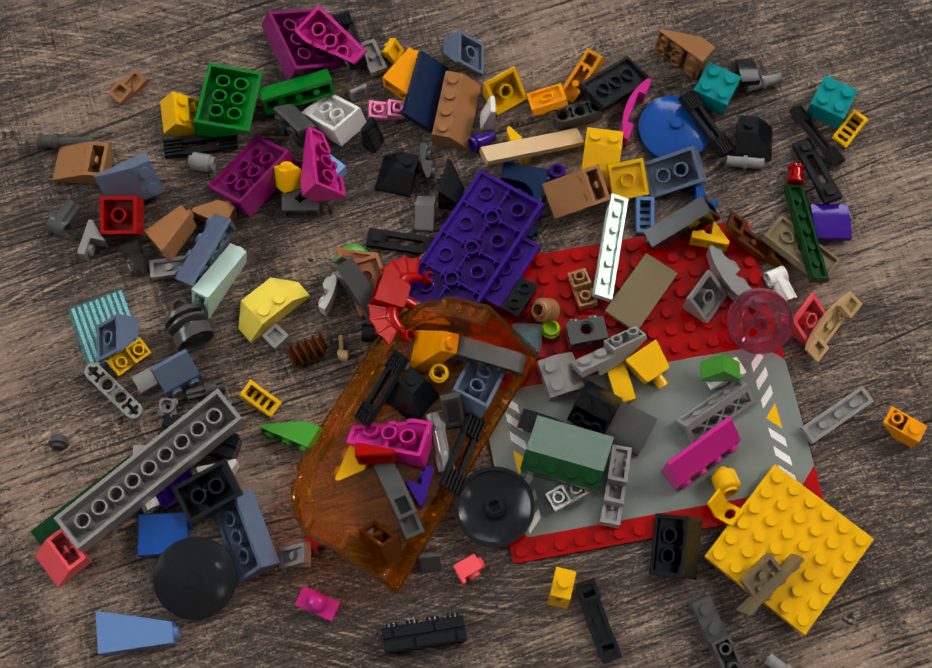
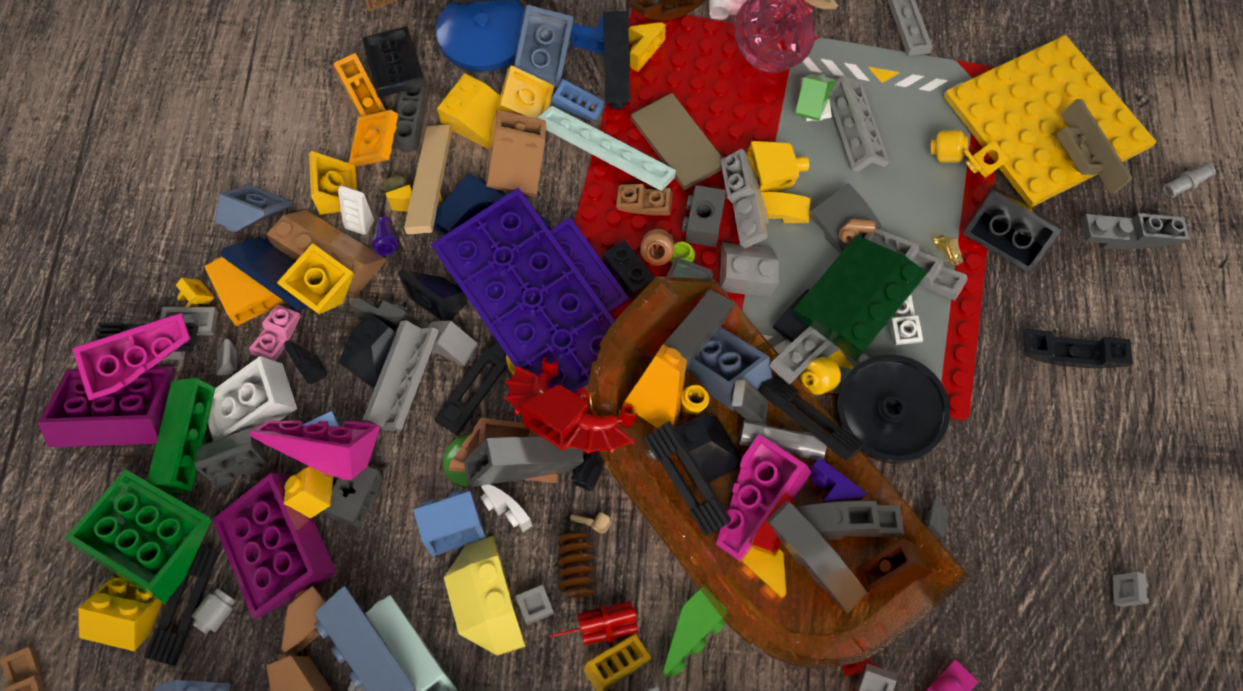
camera: 65 degrees left, 5 degrees down
(280, 382) = (605, 623): none -> red piece
(302, 264) = (449, 523): none -> medium blue brick
(364, 486) = (816, 556): none -> dark grey slope
(387, 194) = (399, 374): none -> light grey fence
(423, 115) = (317, 280): none -> yellow slope
(424, 635) = (1034, 564): black brick -> none
(469, 568) = (962, 474): coral brick -> none
(497, 450) = (821, 375): none -> yellow head
(504, 430) = (799, 353): none -> light grey plate
(521, 129) = (394, 182): none -> olive plate
(556, 168) = (473, 165): dark purple plate -> none
(561, 587) = (1021, 370): yellow torso -> none
(594, 408) = (806, 246): black slope -> none
(621, 434) = (854, 227): none -> medium nougat arm
(637, 508) = (950, 247): none -> clear yellow tile
(638, 94) = (433, 61): dark pink slope -> none
(702, 454) = (909, 156): dark pink slope -> none
(705, 298) = (714, 78): light grey slope -> none
(726, 273) = (697, 46): light grey slope -> none

